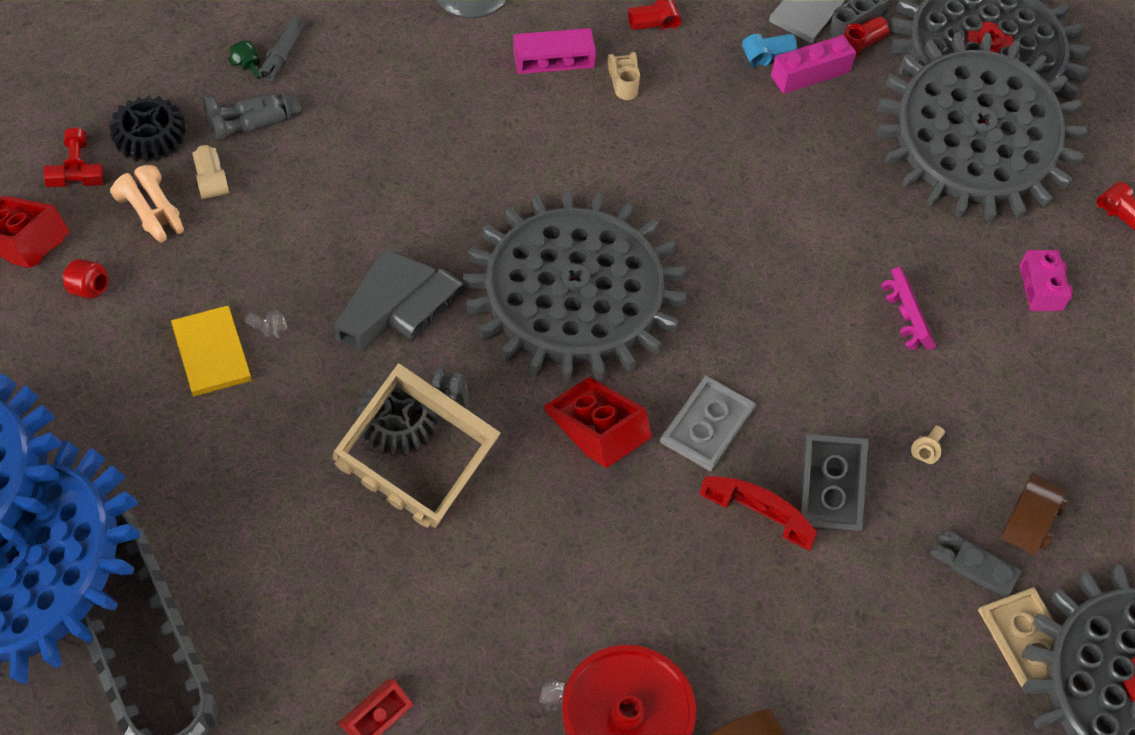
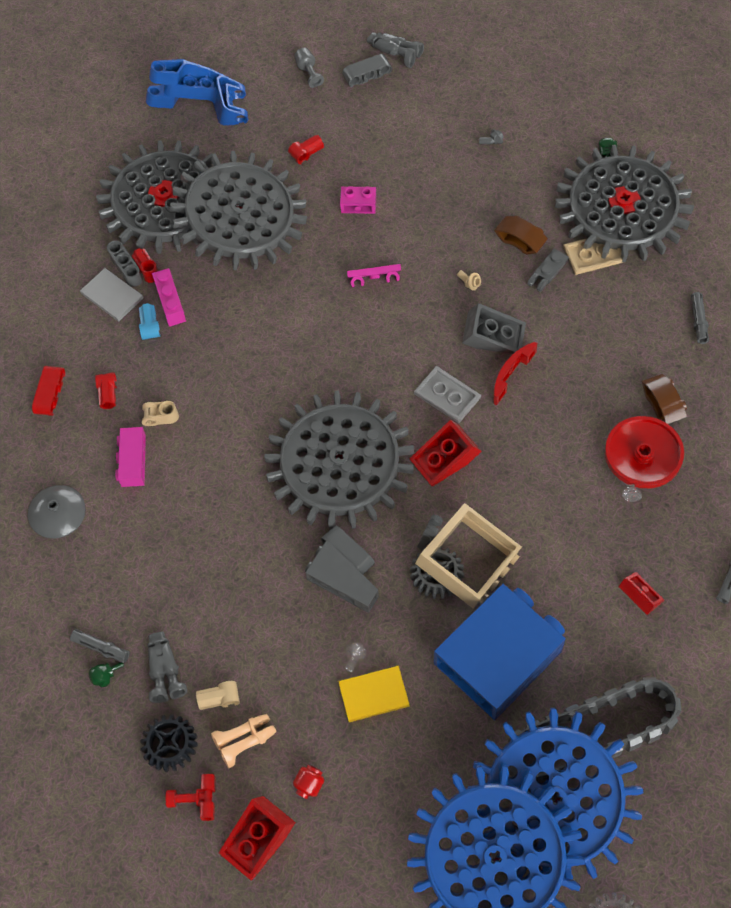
camera: 75 degrees left, 5 degrees up
(264, 496) = (500, 650): none -> blue brick

